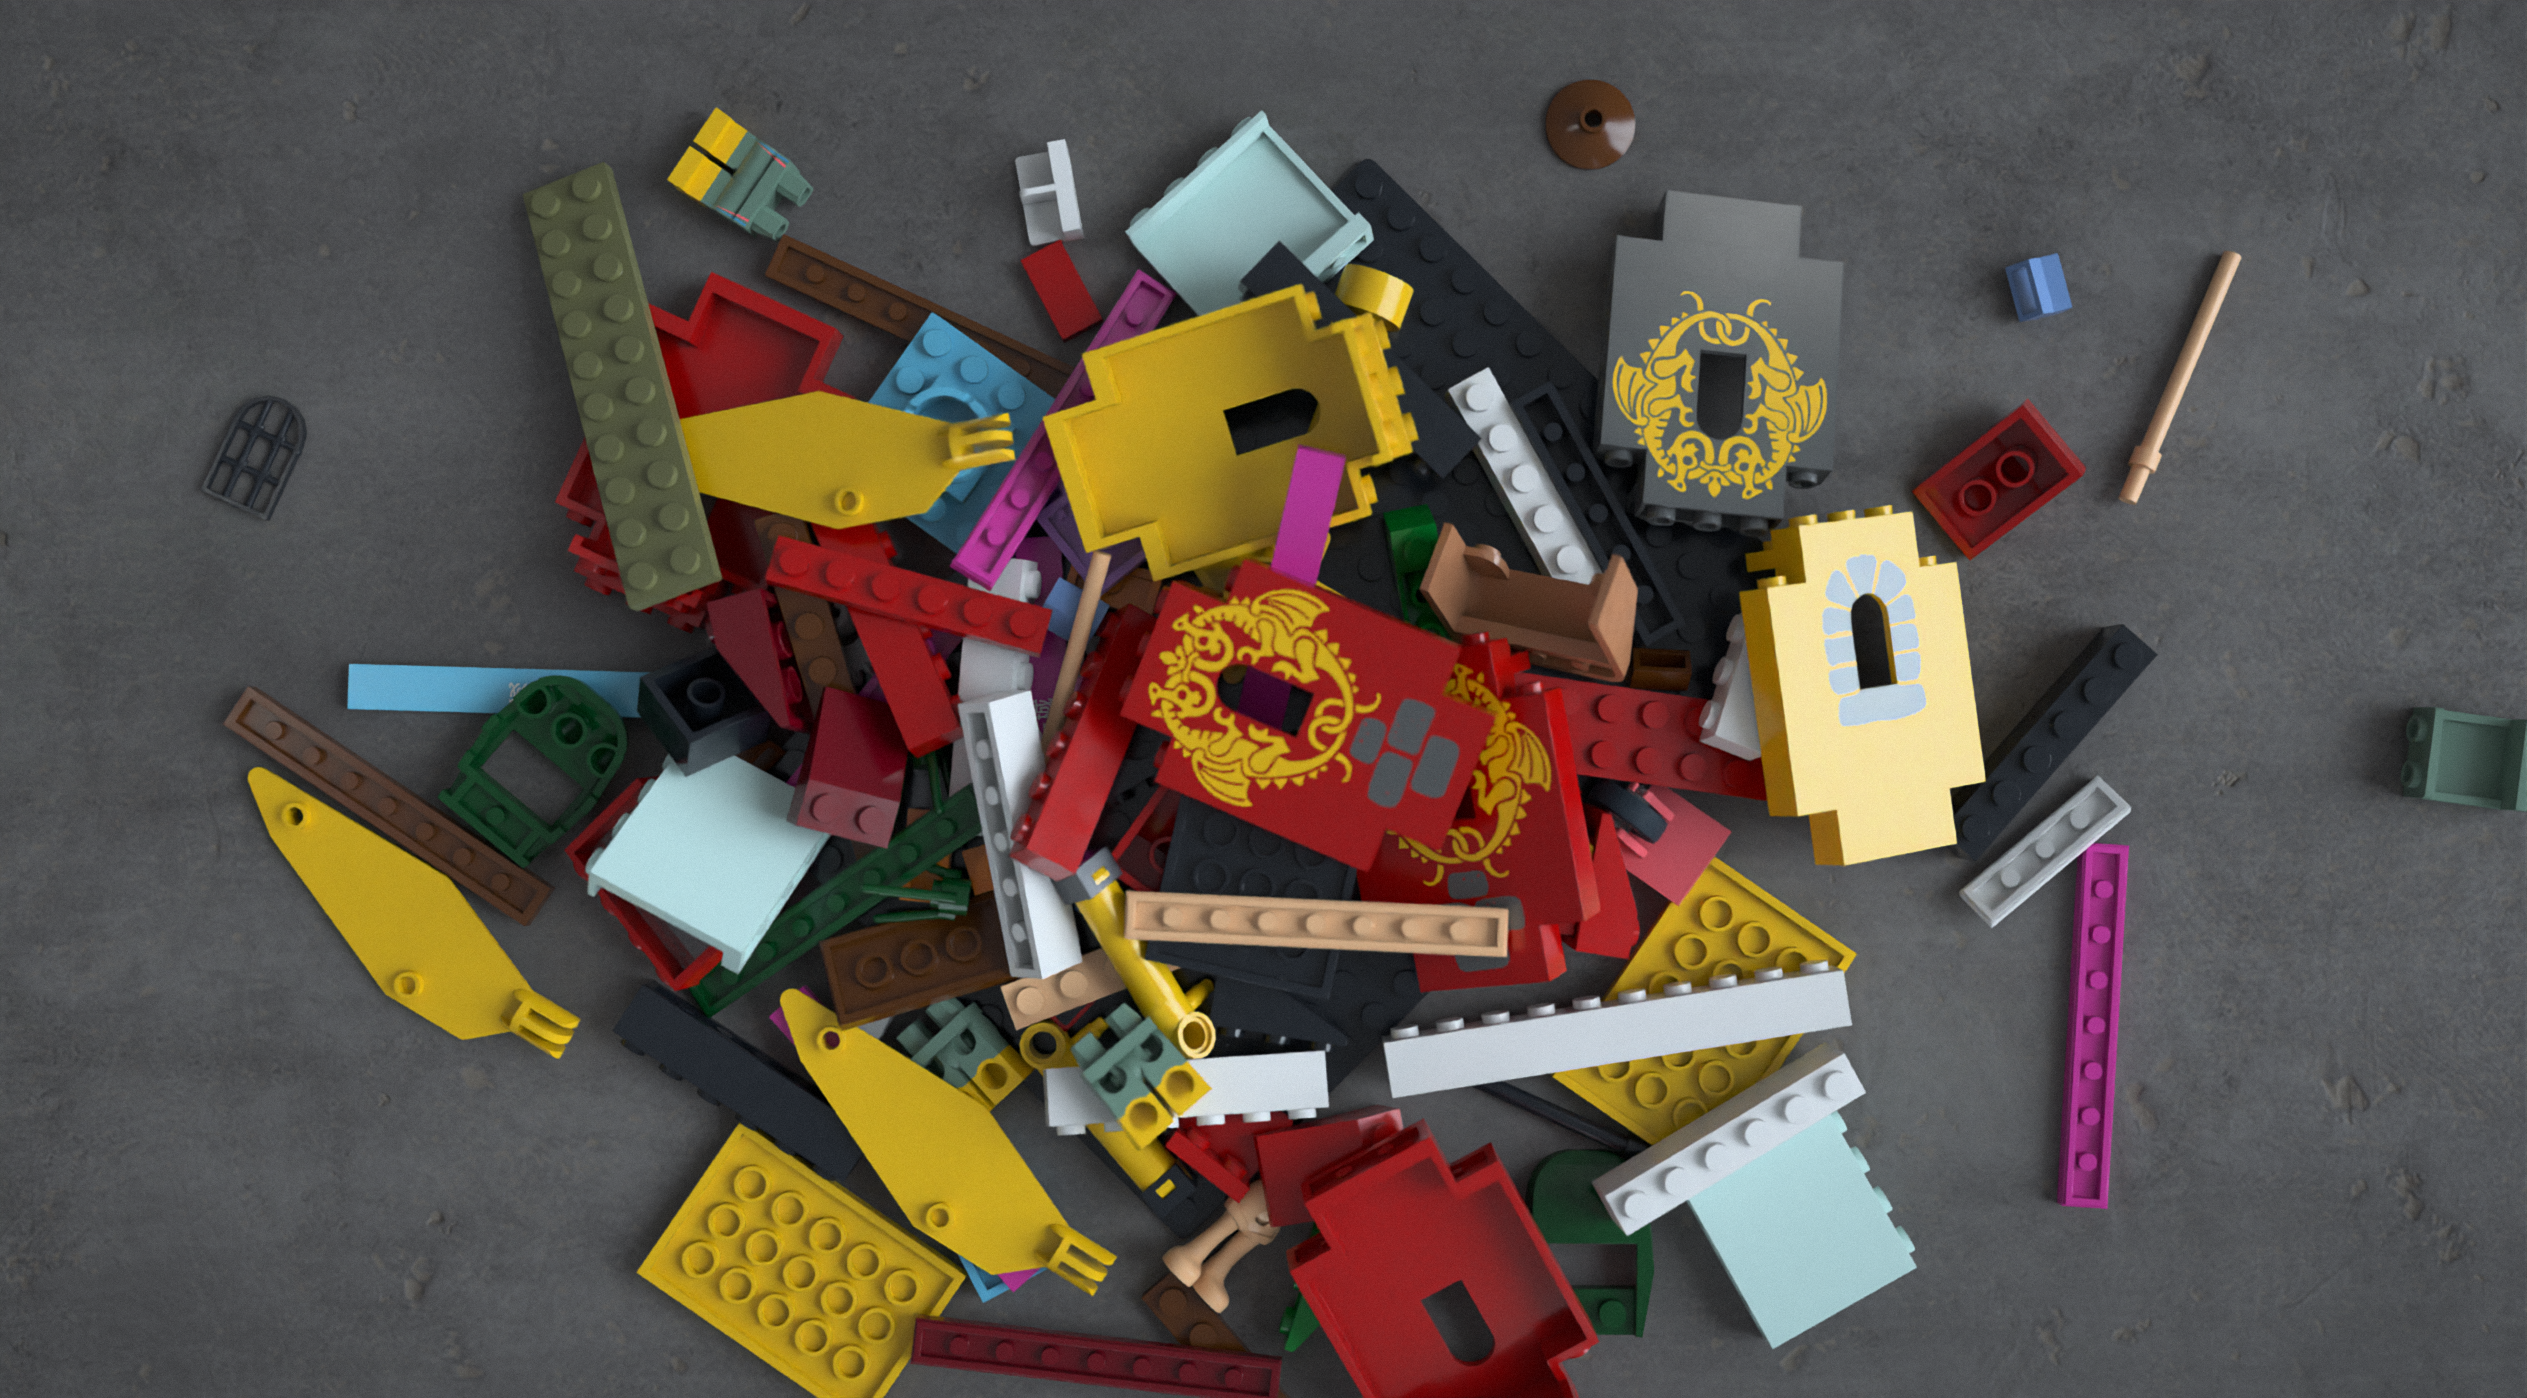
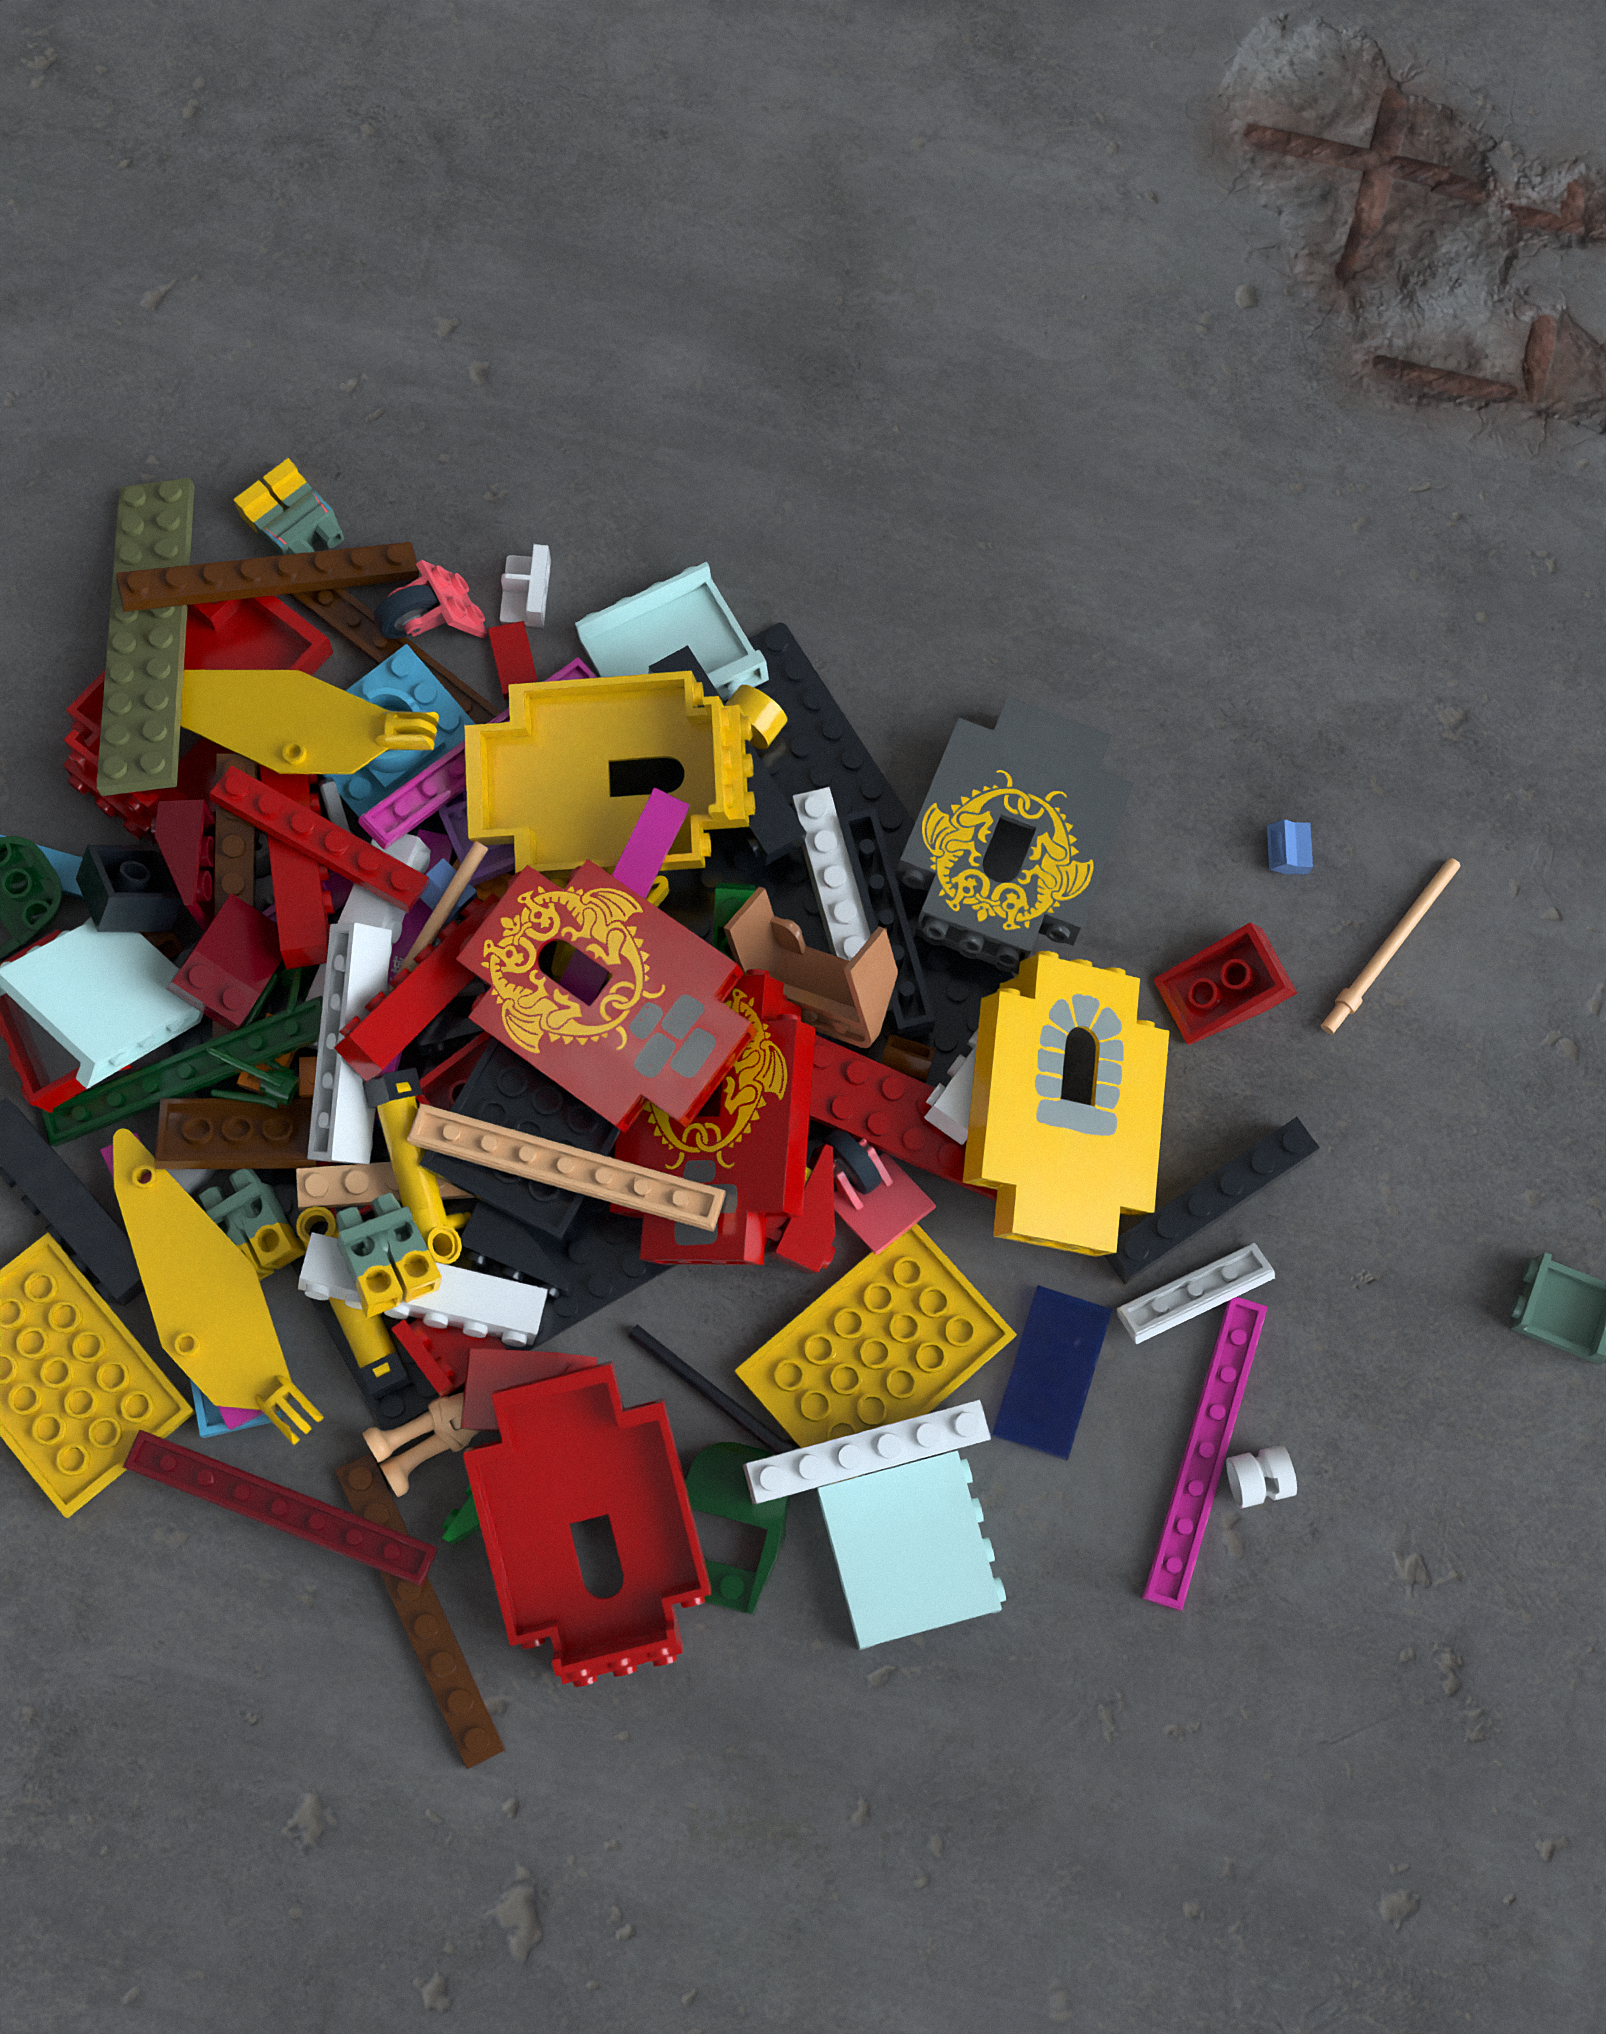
camera: 15 degrees right, 15 degrees down
(739, 272) = (266, 576): none -> reddish brown plate
(914, 548) = (332, 802): none -> light grey tile
(934, 263) = (418, 605): none -> coral plate
(1584, 145) = (963, 656): reddish brown dish -> none
(1617, 1029) = (794, 1338): white brick -> none
(1903, 981) = (1052, 1373): none -> clear blue tile
(2161, 1045) = (1261, 1476): none -> white wheel

